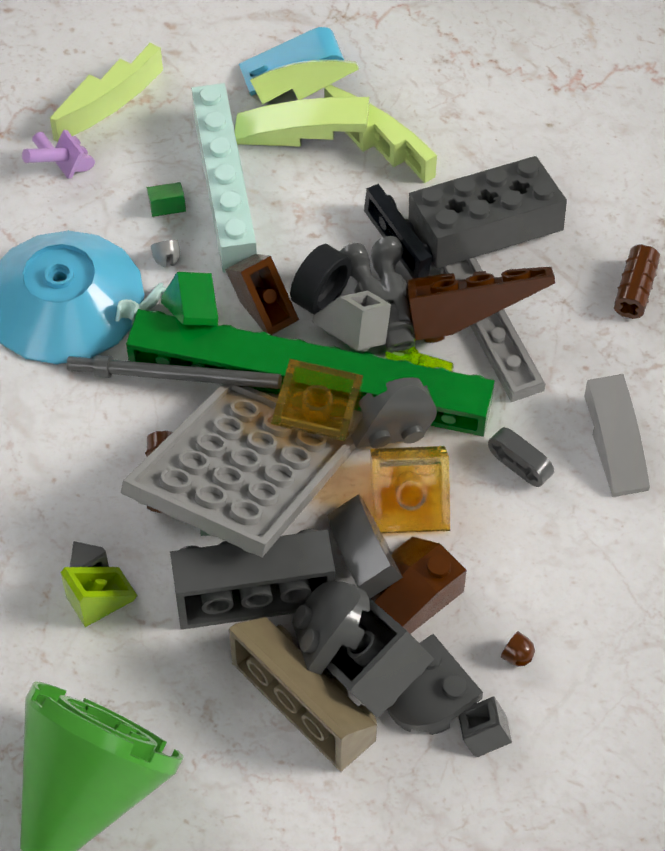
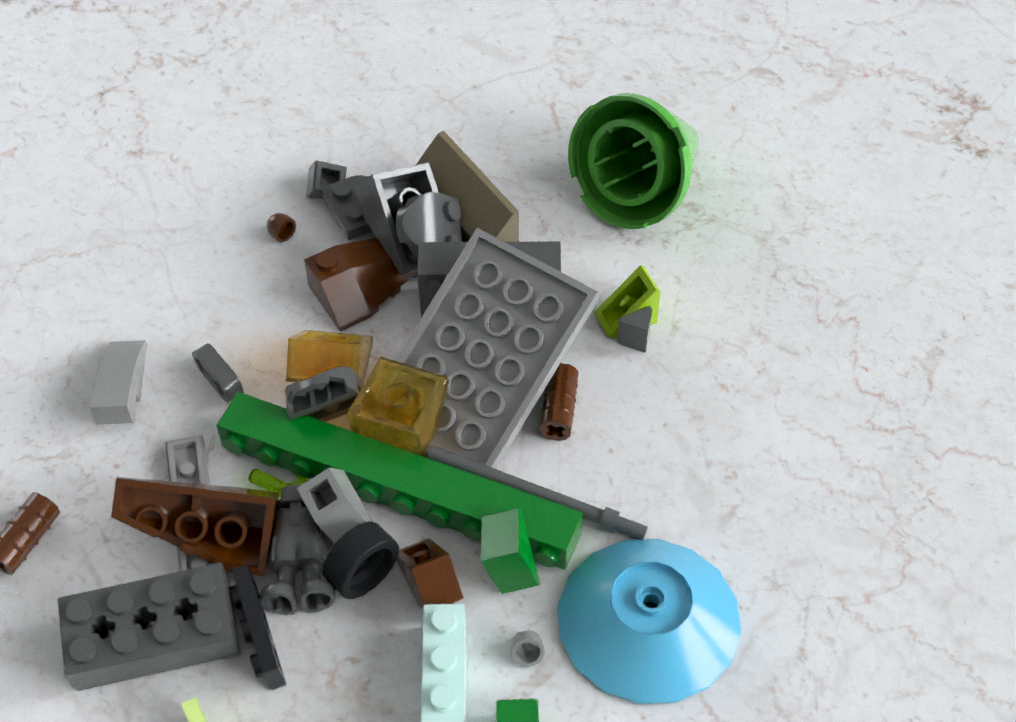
camera: 170 degrees left, 5 degrees down
(129, 308) = (558, 583): light aqua piece -> none
(363, 547) = (387, 300): dark grey slope -> none

